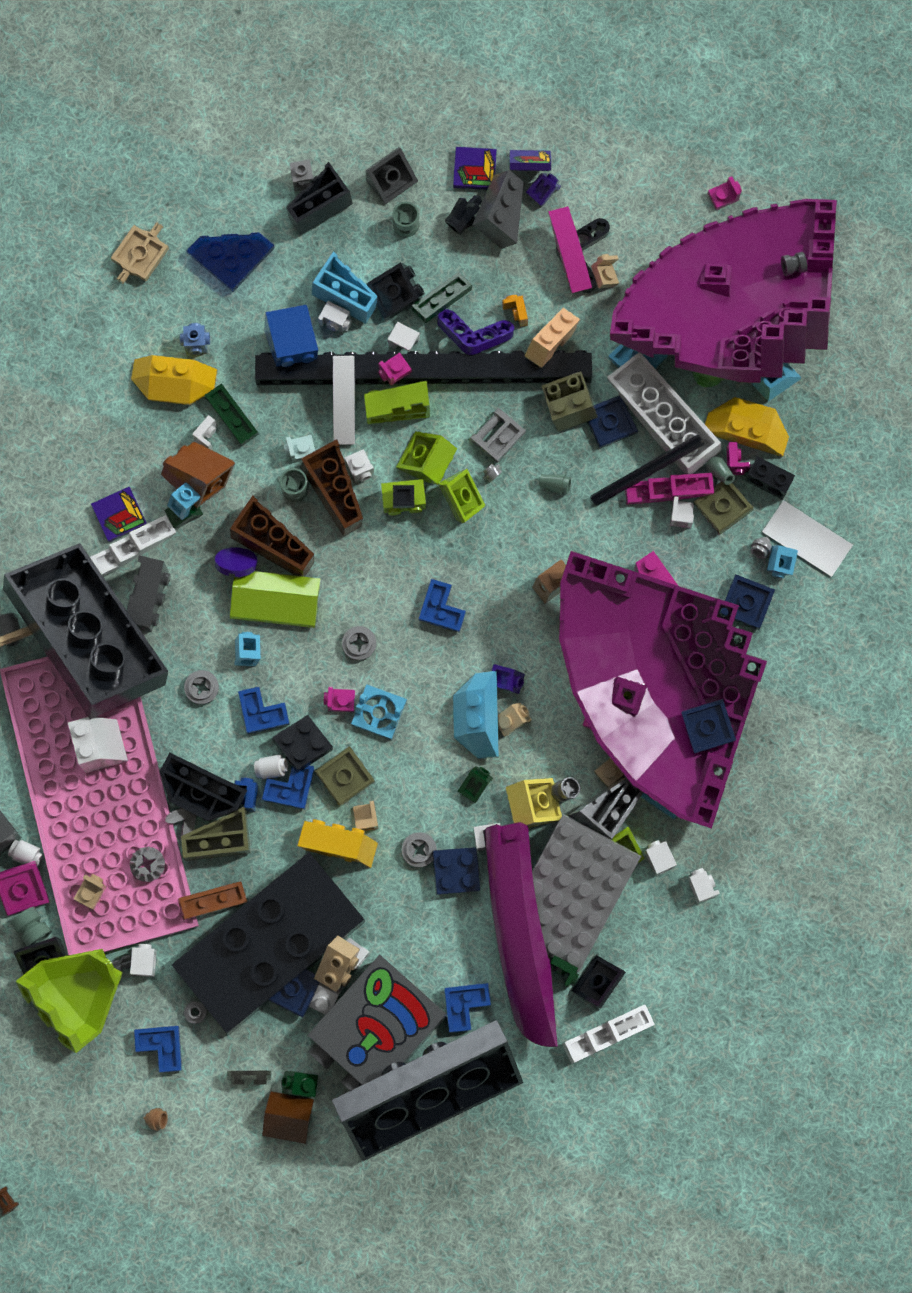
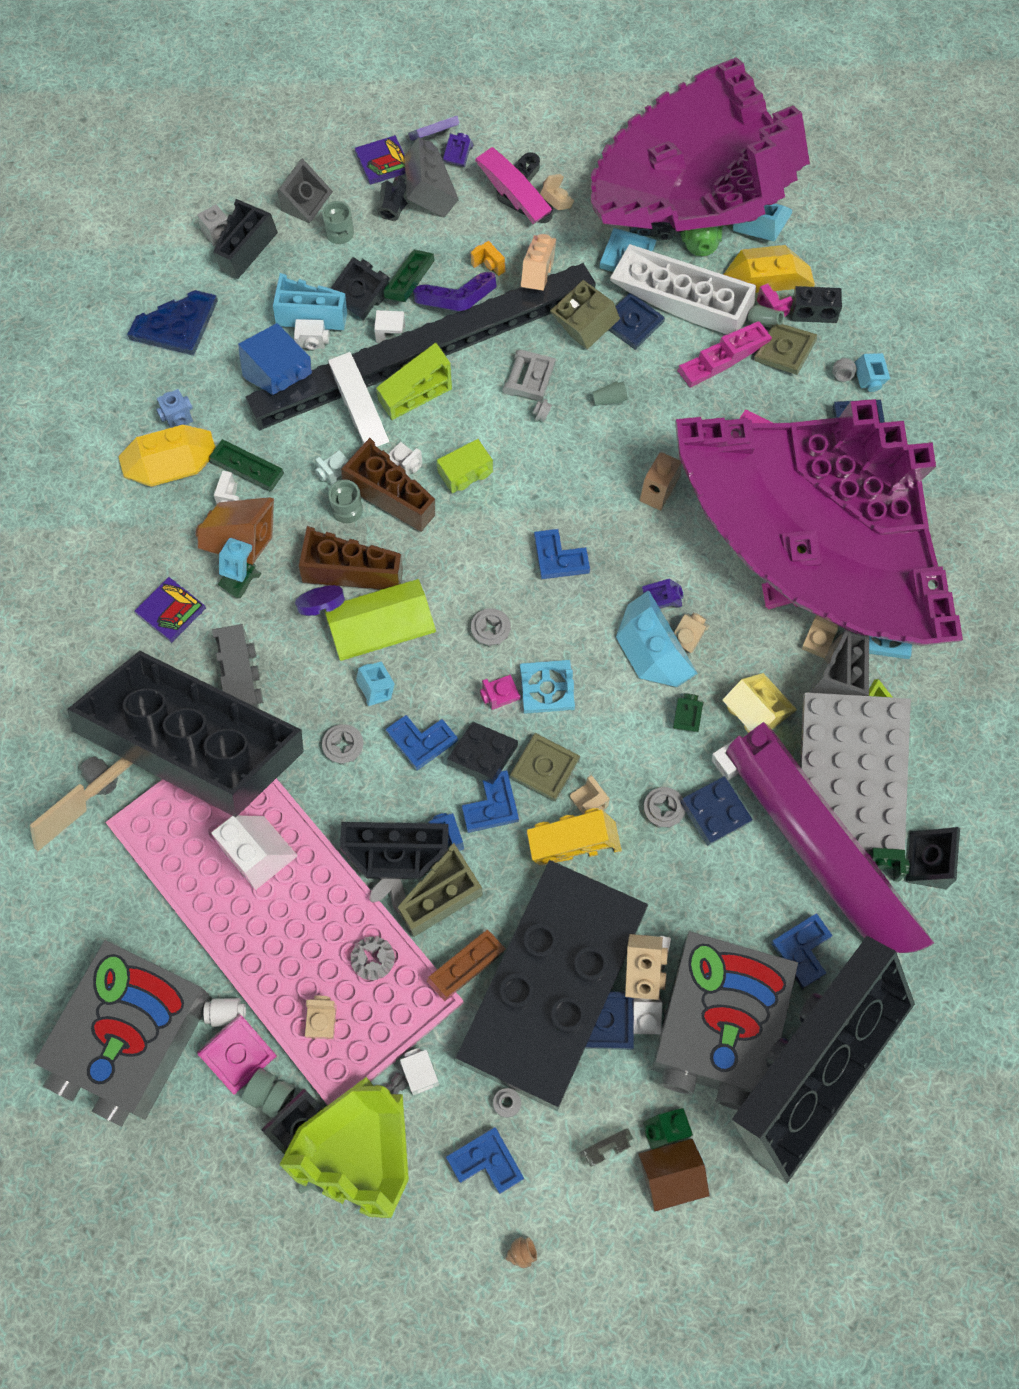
camera: 25 degrees left, 10 degrees down
(133, 545) = (198, 635): white slope -> none
(140, 253) = (79, 356): tan plate -> none
(271, 767) = (460, 791): white brick -> none
(394, 369) = (395, 351): dark pink bracket -> none
(403, 496) = (467, 459): black plate -> none
(427, 457) = (469, 419): lime slope -> none
(462, 495) = (523, 442): lime slope -> none
(565, 789) = (785, 675): dark grey wheel -> none
(608, 1034) = (972, 908): white slope -> none
(647, 470) = (697, 340): black axle -> none
(660, 857) = (923, 699): white brick -> none
(682, 513) = (749, 372): white panel -> none
(702, 885) = (979, 709): white brick -> none
(708, 726) = (897, 545): dark blue plate -> none
(725, 193) = (632, 91): dark pink bracket -> none
(793, 263) = (727, 120): dark grey wheel -> none
(810, 538) = (897, 346): white sticker -> none

